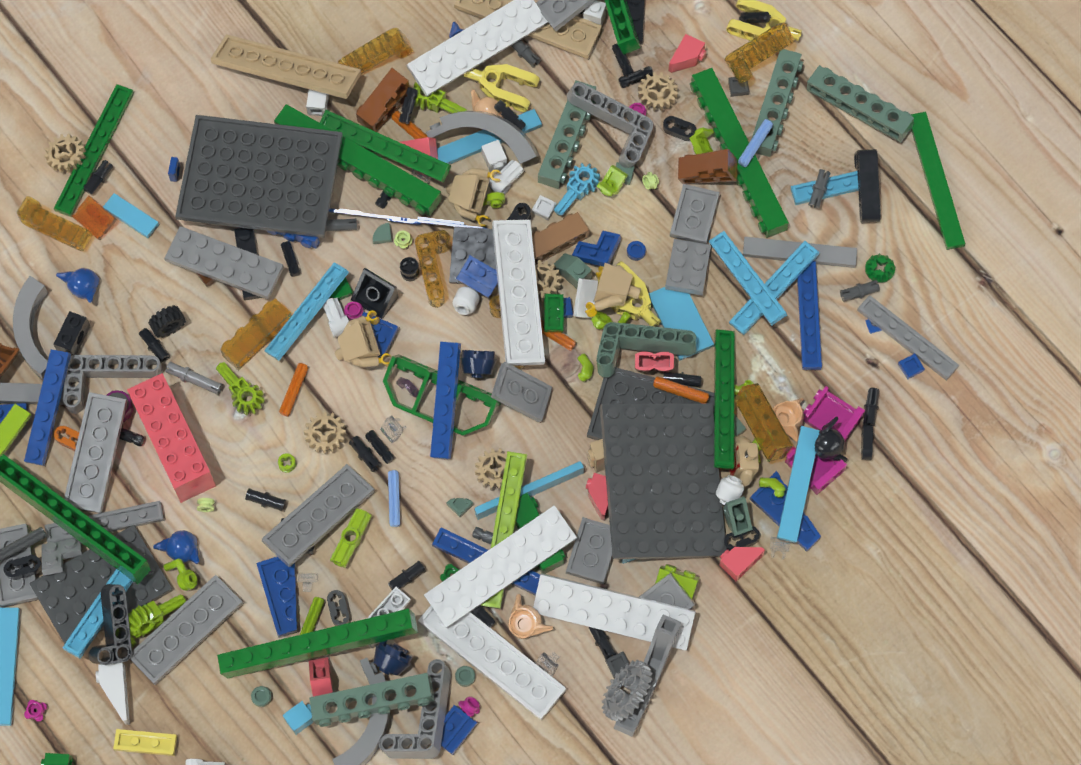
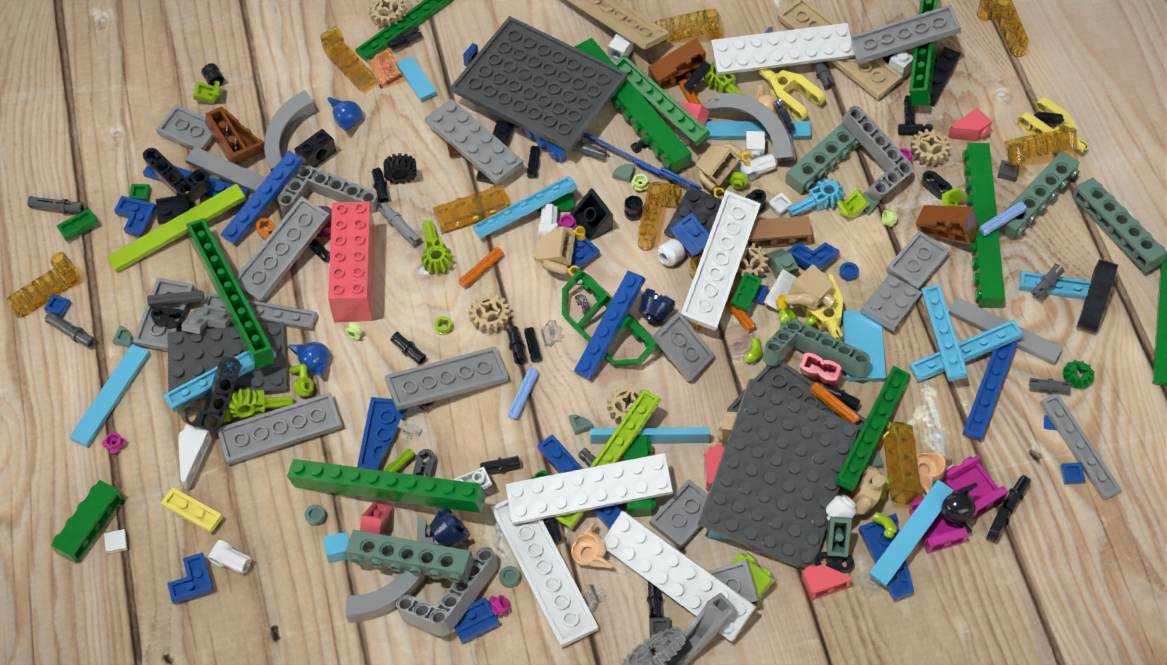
camera: 25 degrees right, 10 degrees down
(346, 548) = (457, 417): lime piece -> none

